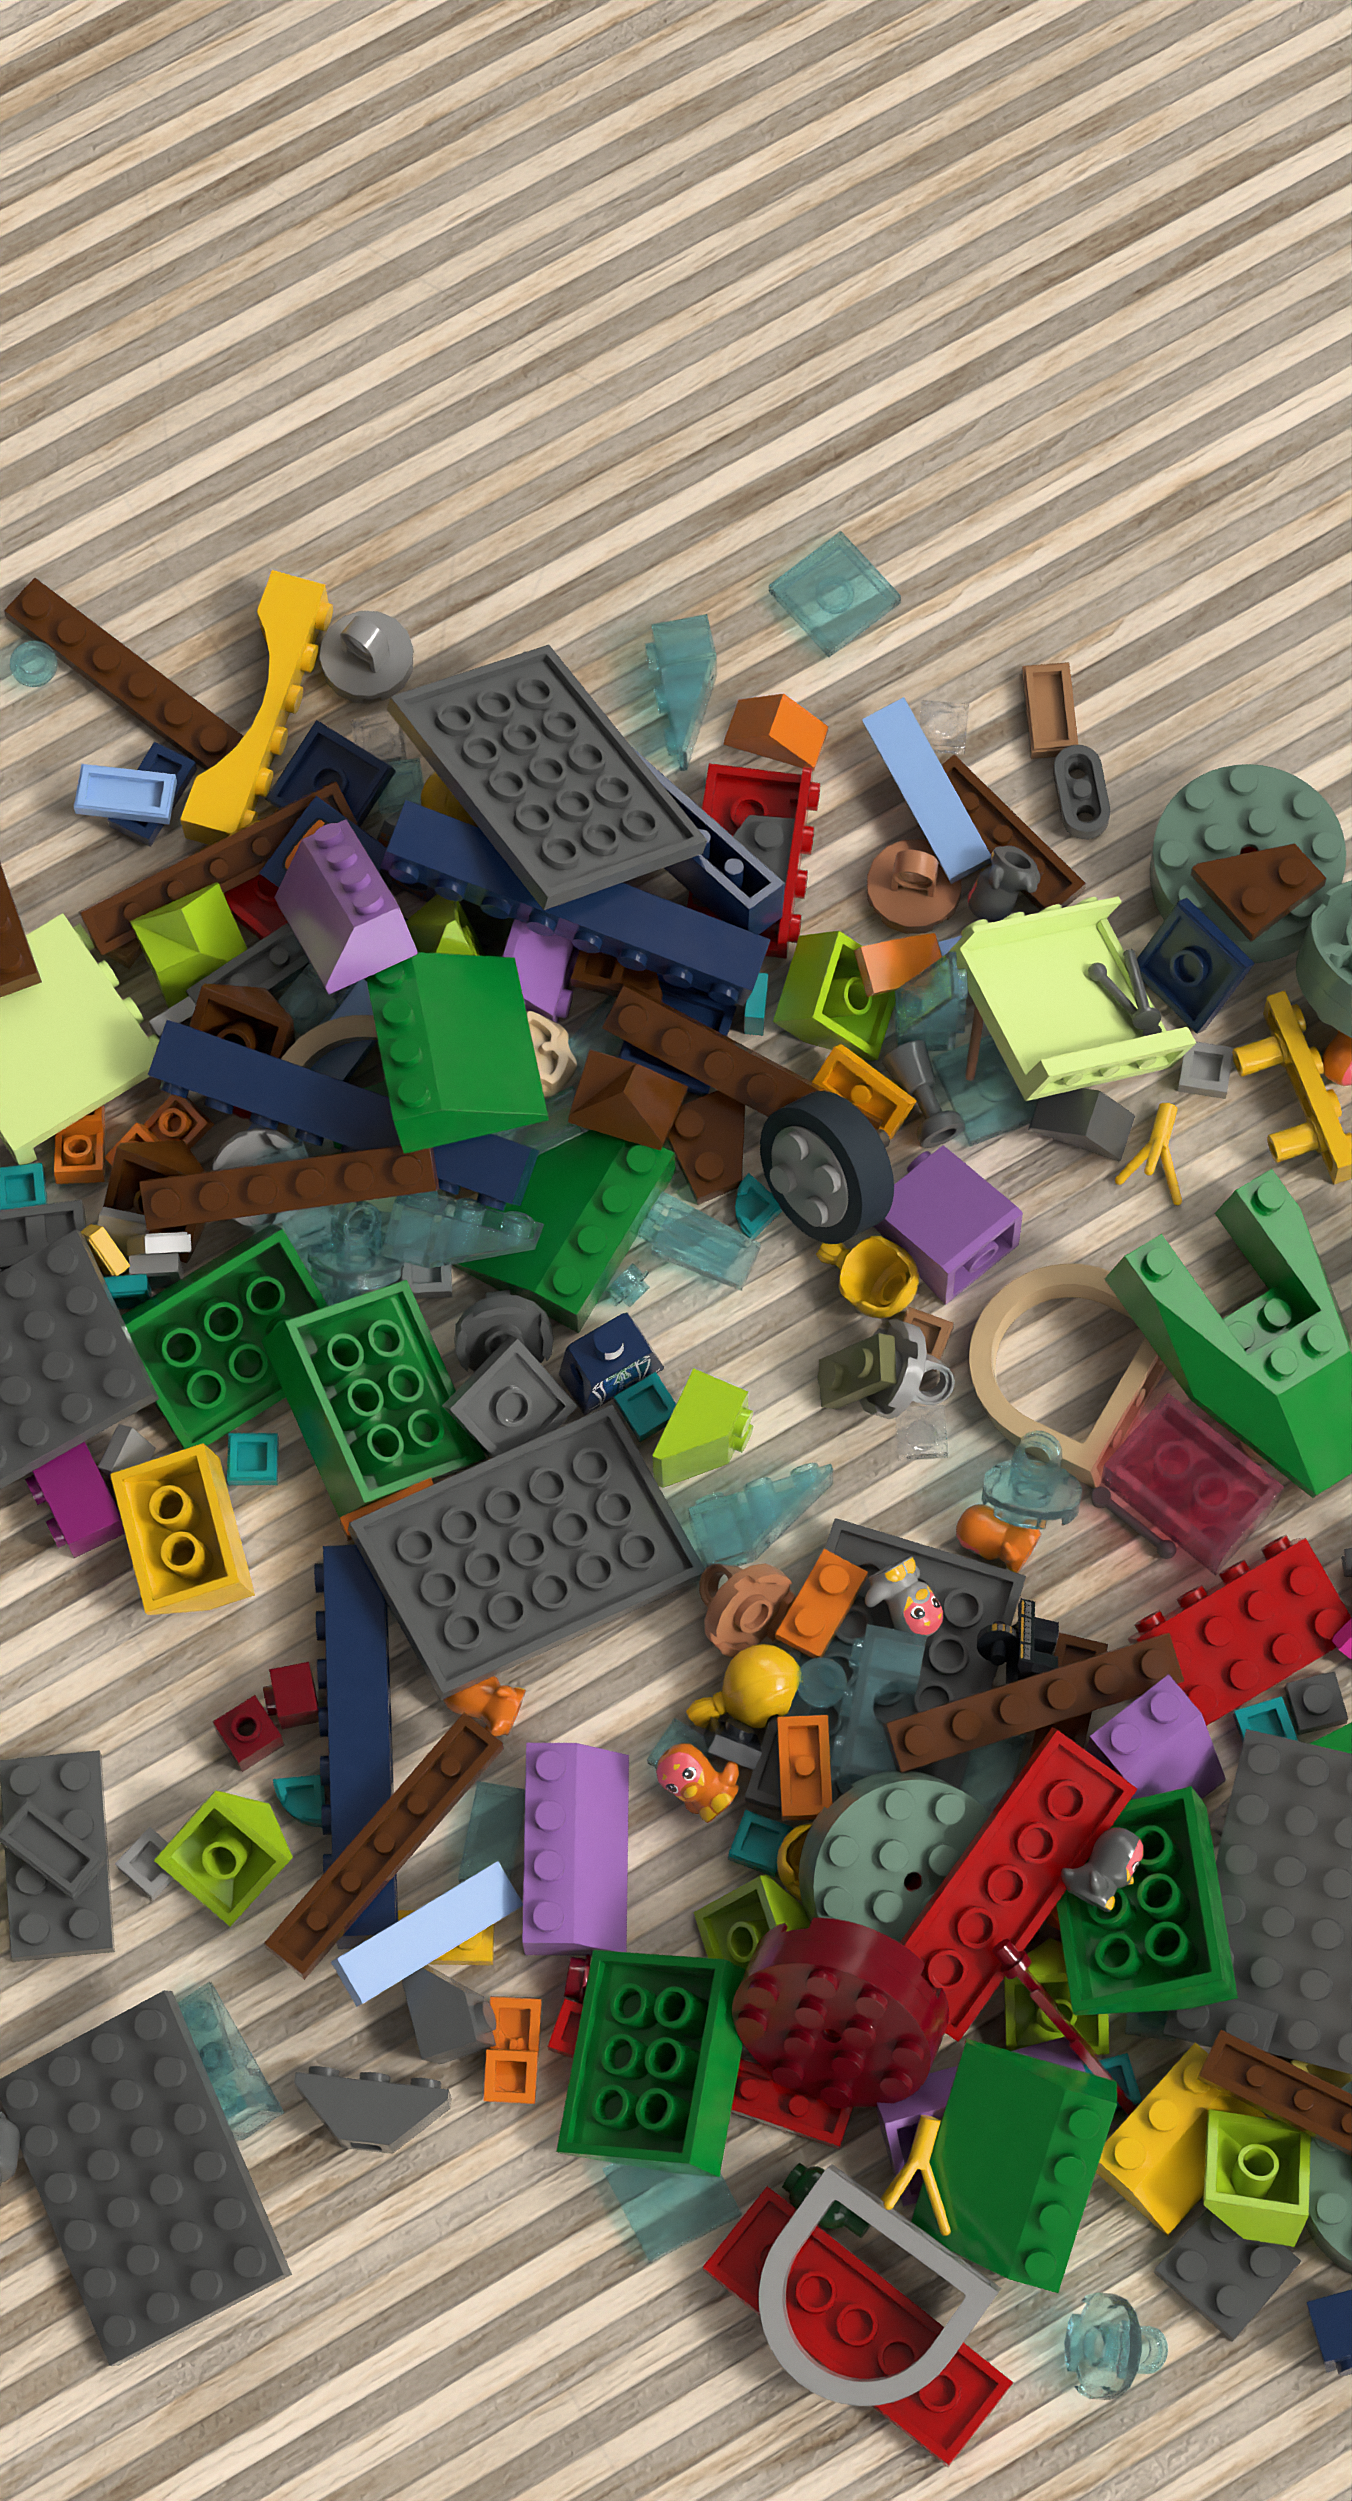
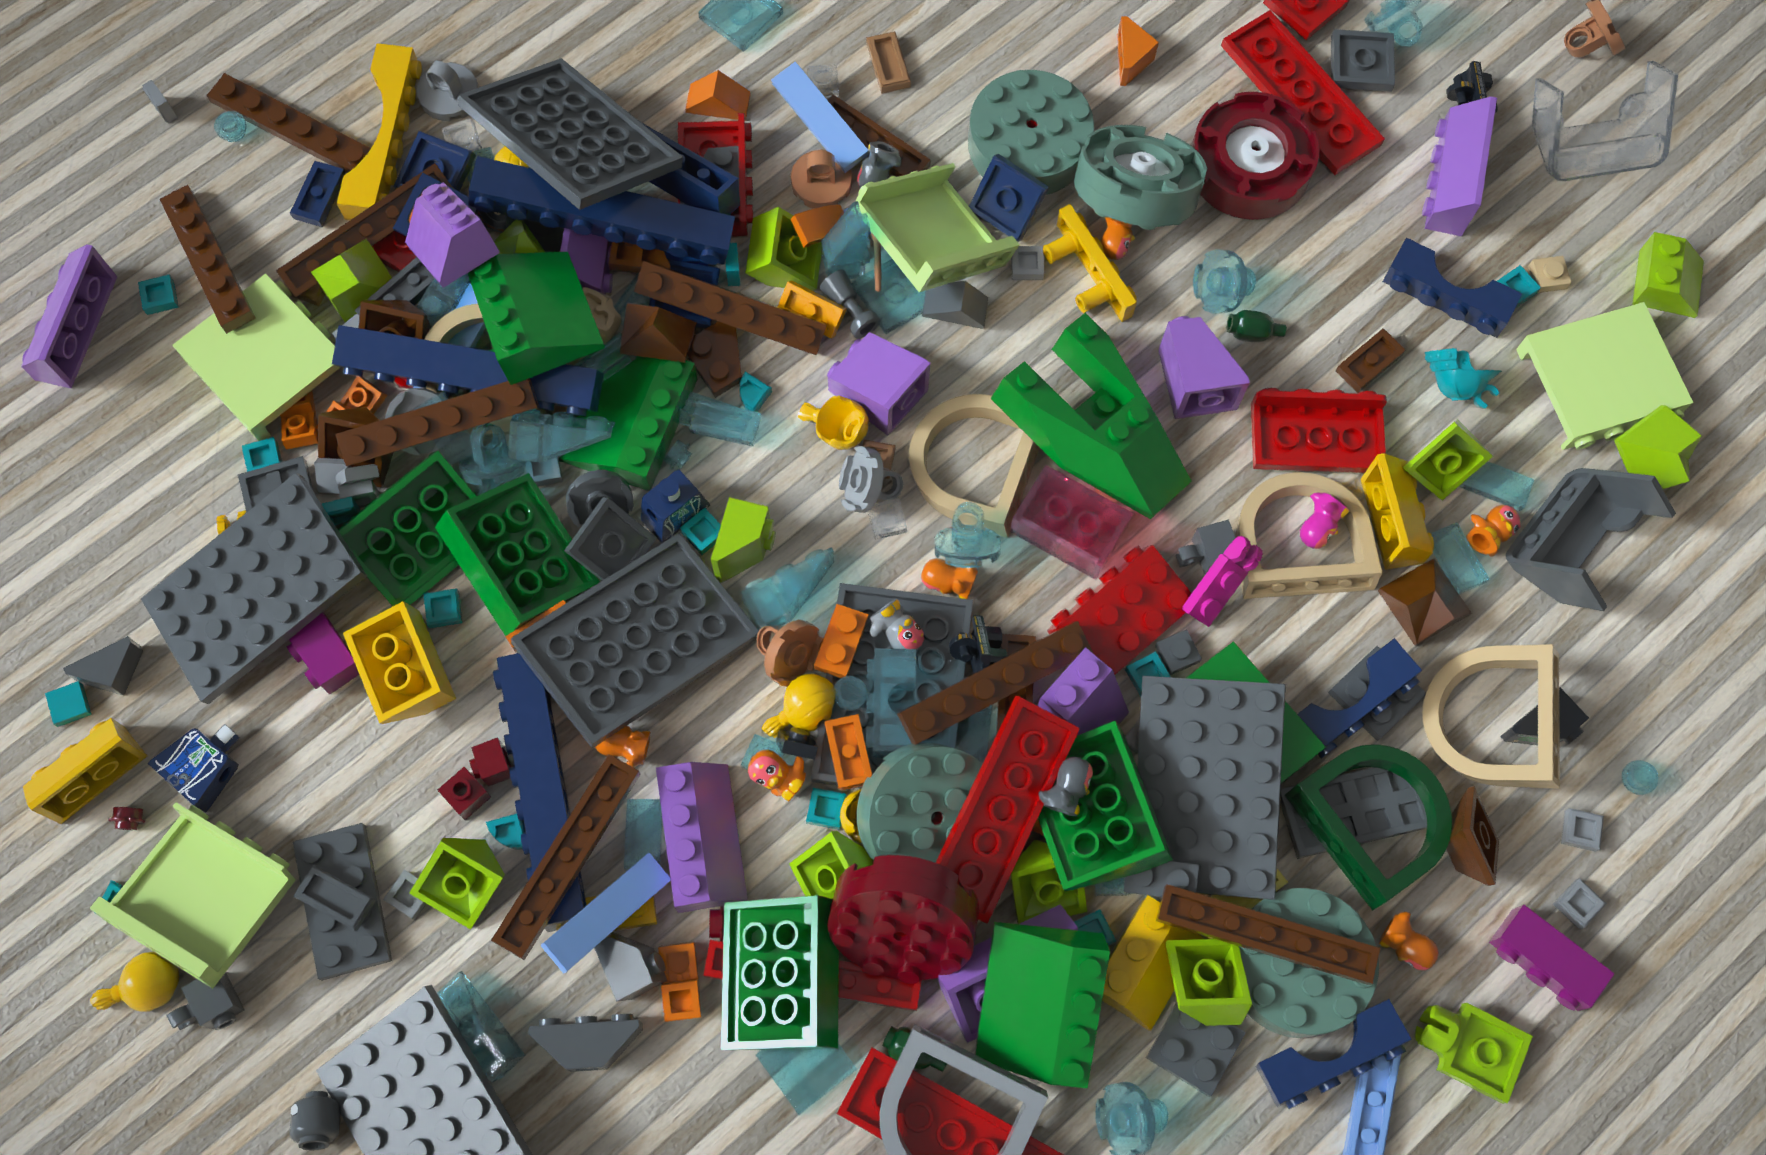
camera: 15 degrees left, 0 degrees up
(104, 1250) = (320, 486): yellow tile -> none
(125, 794) = (299, 194): light blue tile -> none
(125, 1450) = (352, 615): light grey tile -> none
(687, 672) = (655, 73): clear light blue slope -> none
(827, 1167) = (796, 355): black wheel -> none
(857, 1371) = (838, 484): olive plate -> none
(919, 2159) = (975, 1010): yellow plant -> none
(1015, 1965) = (1018, 864): dark red piece -> none
(1082, 794) = (918, 108): dark grey plate -> none
(1098, 972) = (949, 211): dark grey hinge -> none
(1102, 1498) = (1012, 542): dark grey hinge -> none
(1146, 1016) = (984, 233): dark grey pin -> none
(1154, 1148) = (1007, 316): yellow plant -> none
(1259, 885) = (1043, 139): reddish brown wing -> none

